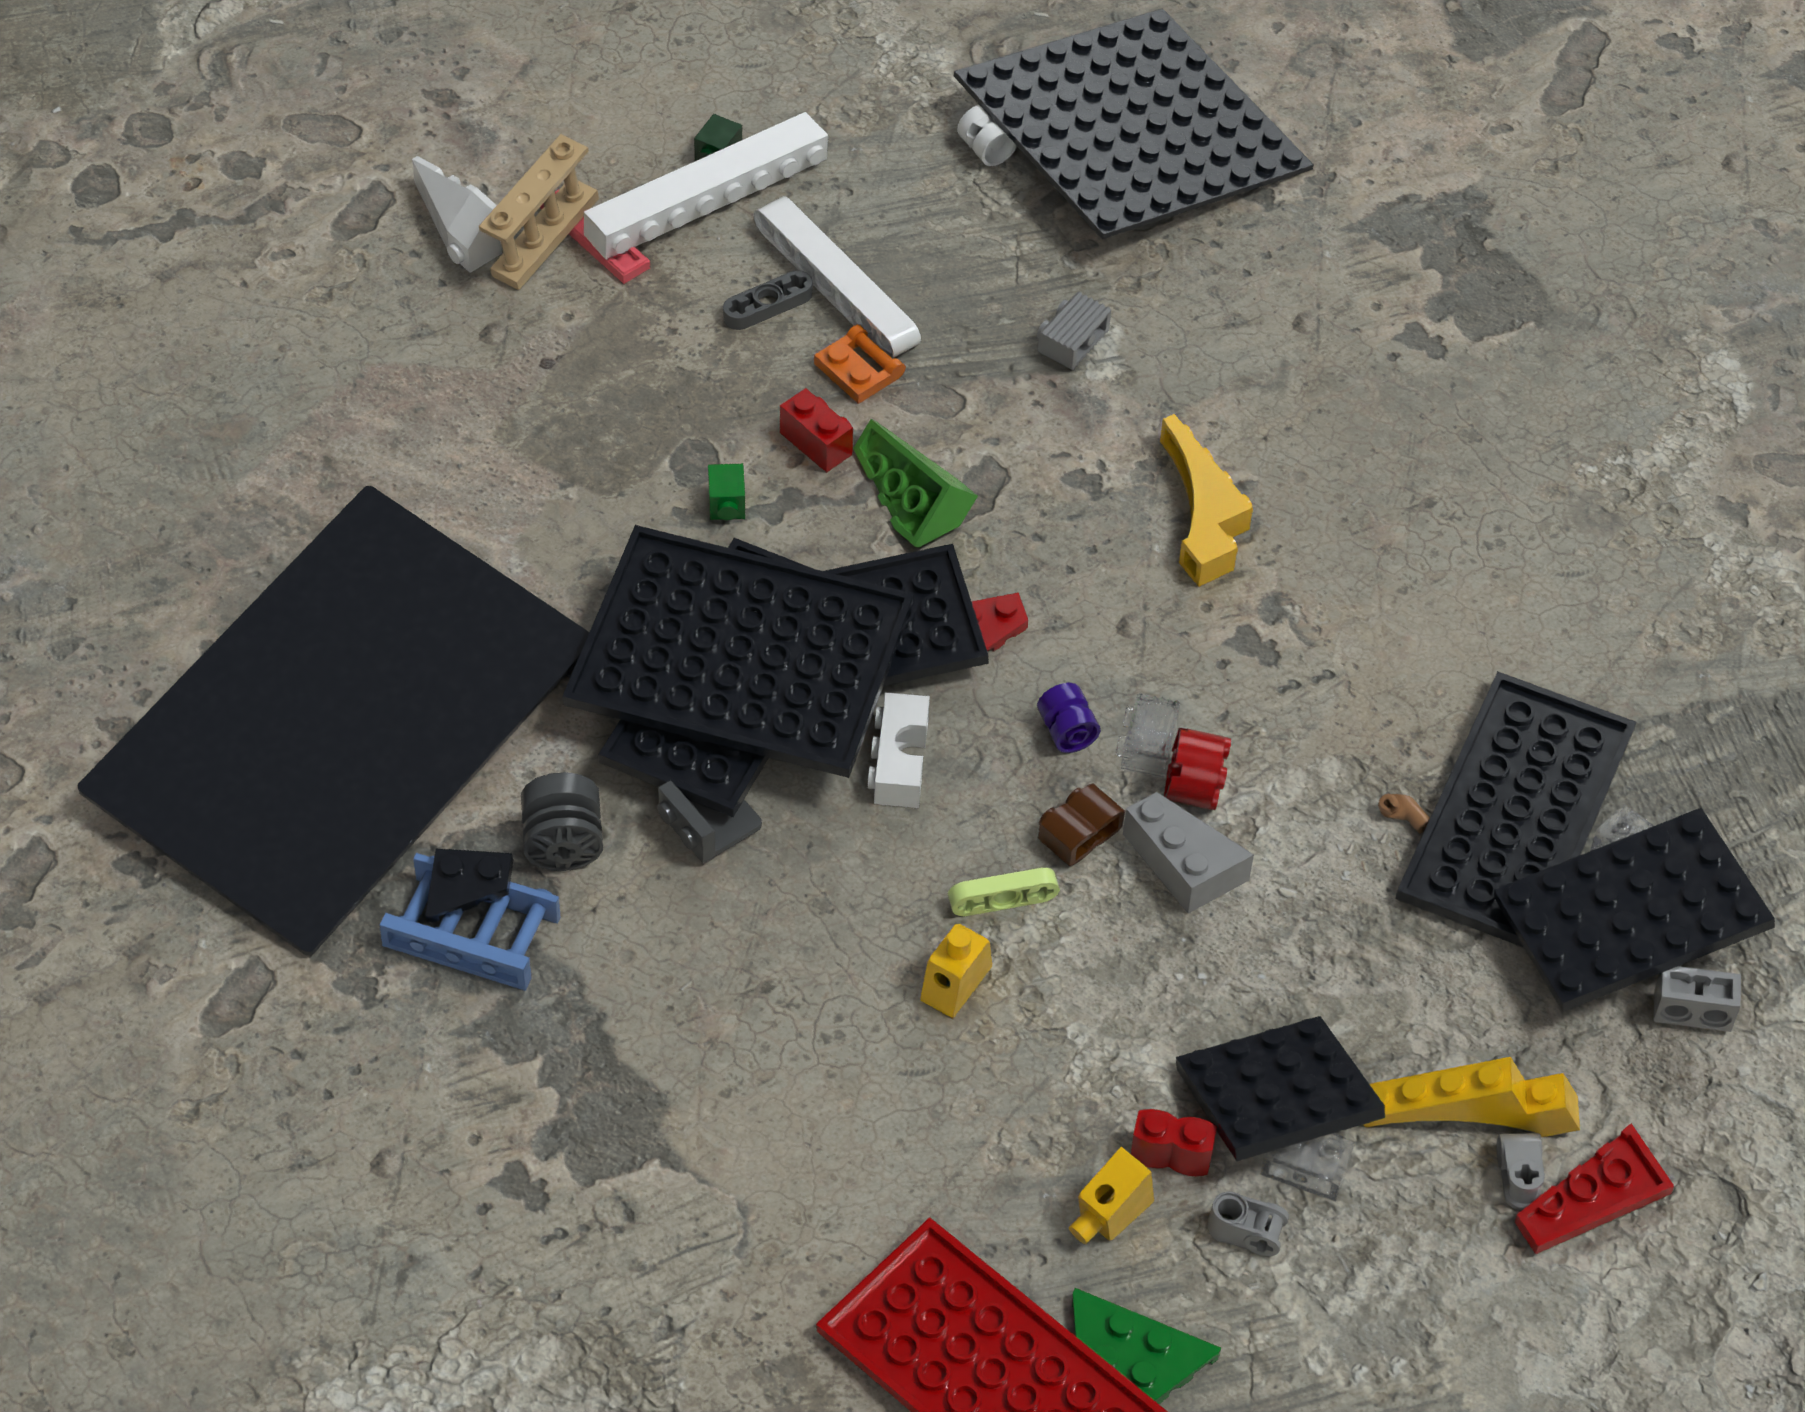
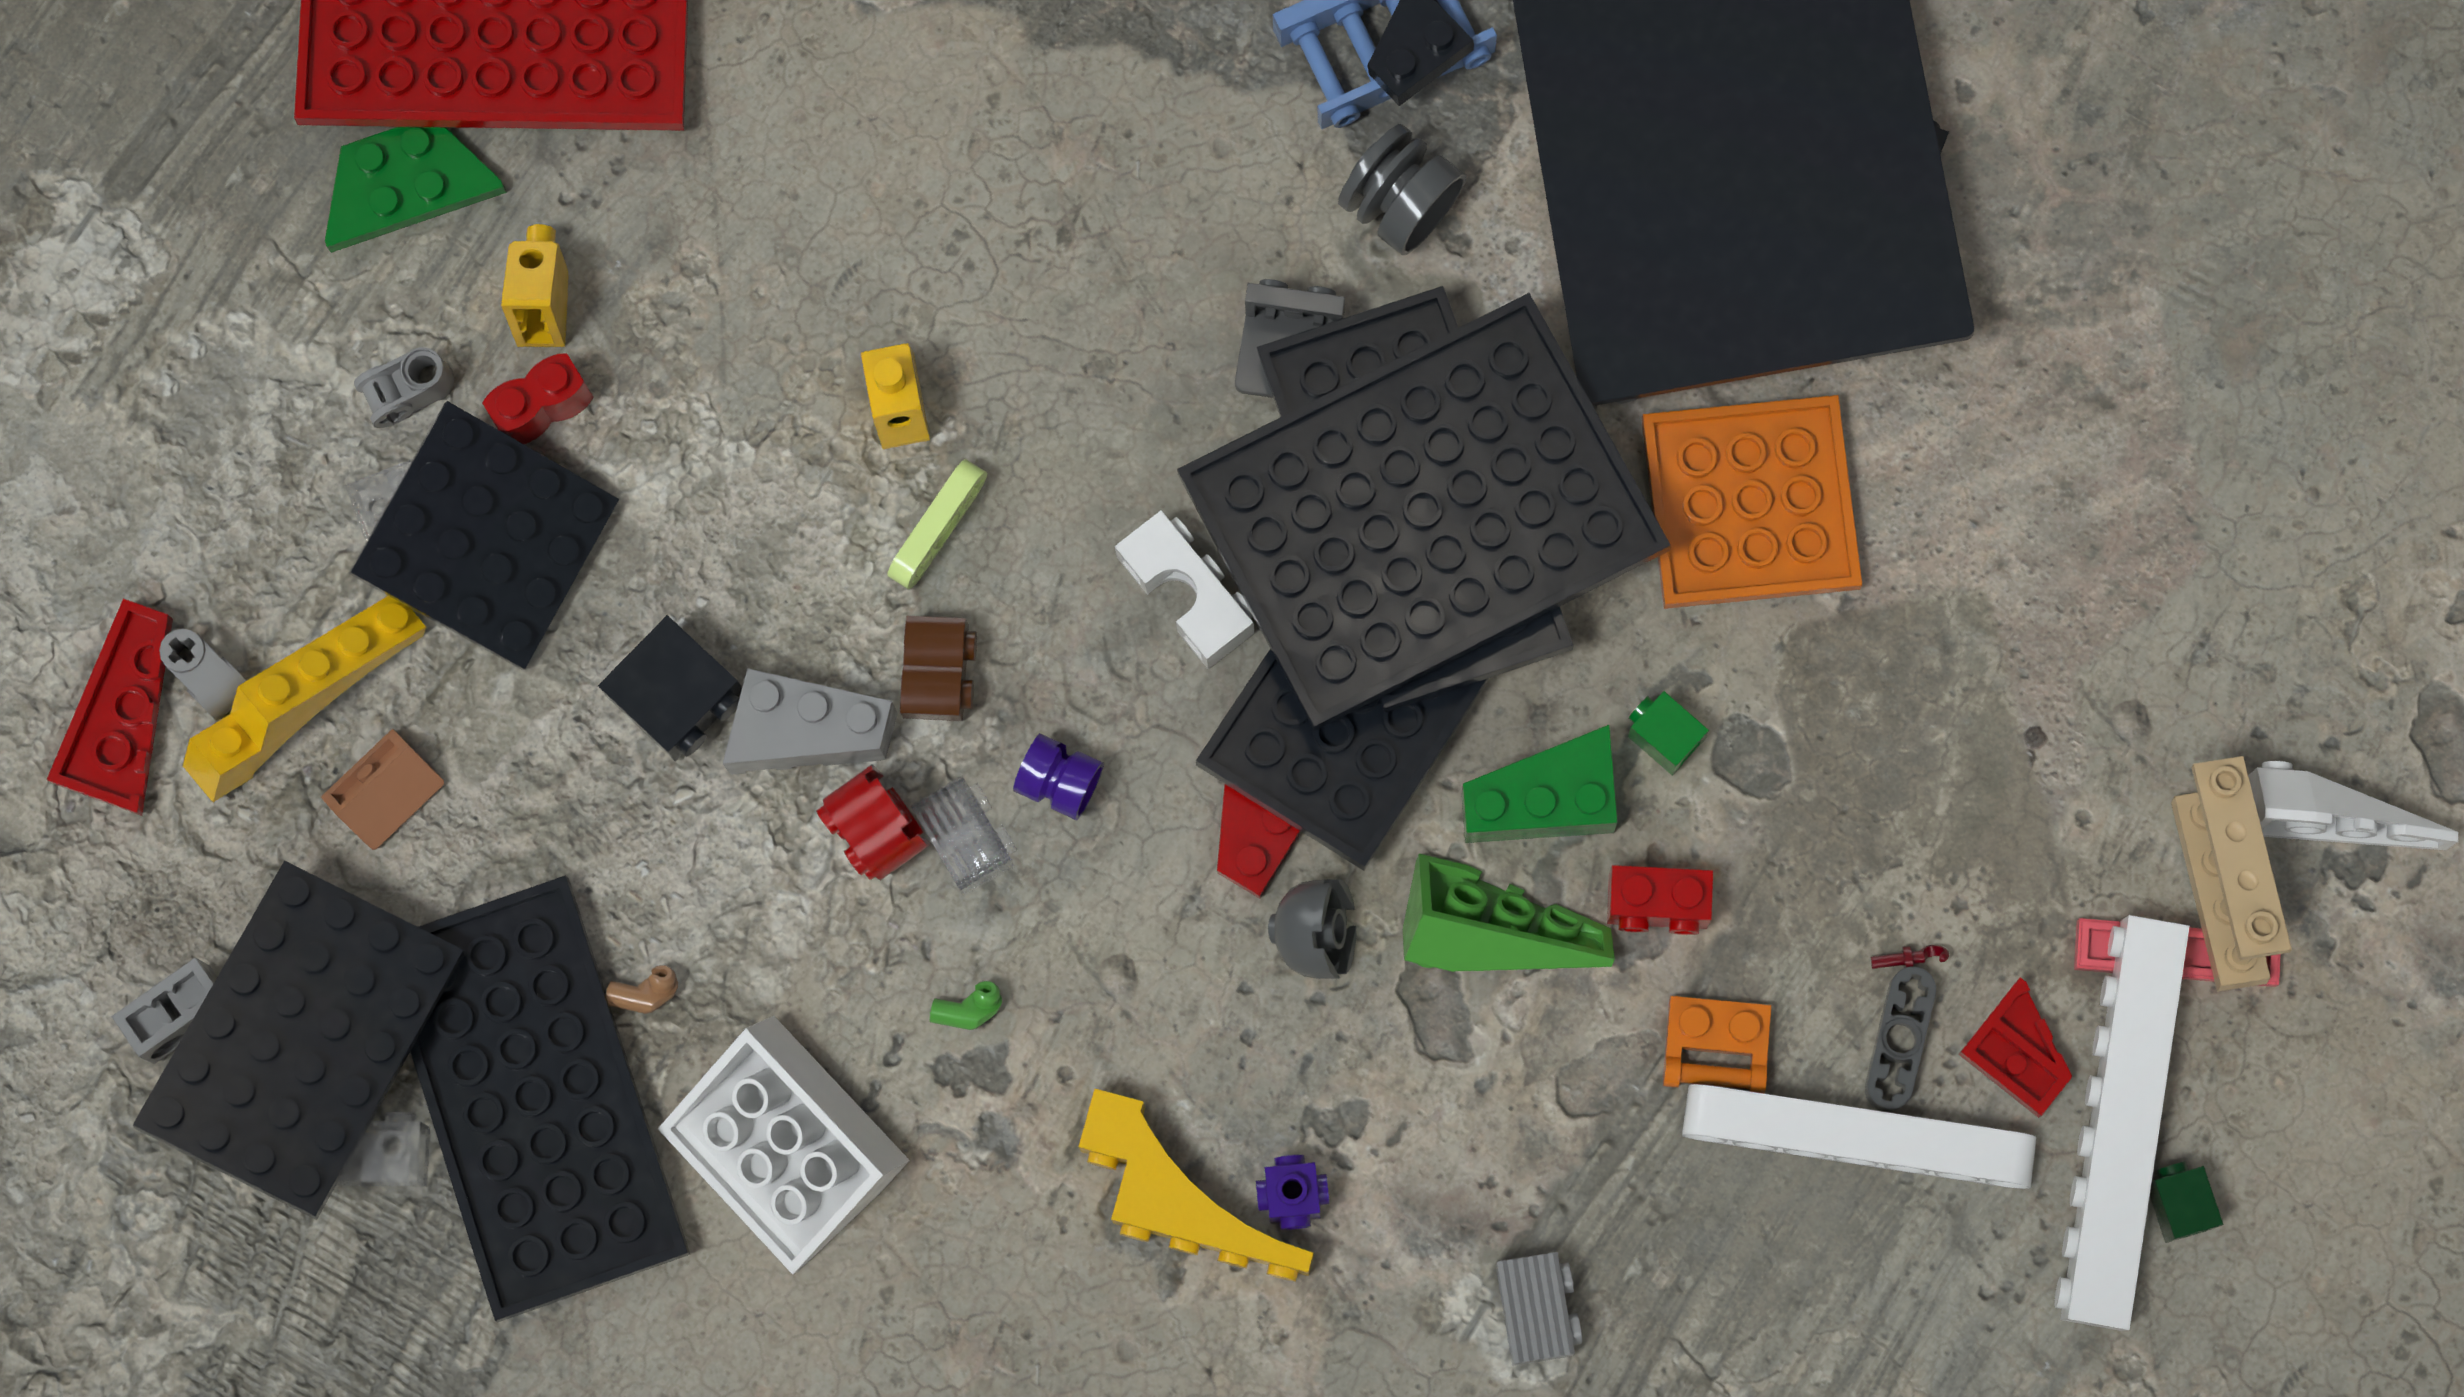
camera: 145 degrees right, 25 degrees up
(557, 546) = (1752, 501): none -> orange plate
(718, 251) = (2018, 1051): none -> red wing
(724, 325) = (1908, 957): none -> dark red hand
(821, 511) = (1546, 794): none -> green wedge
(1009, 548) = (1313, 930): none -> dark grey cylinder
(1144, 457) = (1292, 1212): none -> dark purple brick
(1229, 664) = (972, 1011): none -> bright green arm
(1244, 928) = (672, 689): none -> black brick
(1393, 680) = (782, 1143): none -> white slope
(1467, 1027) = (382, 790): none -> nougat panel

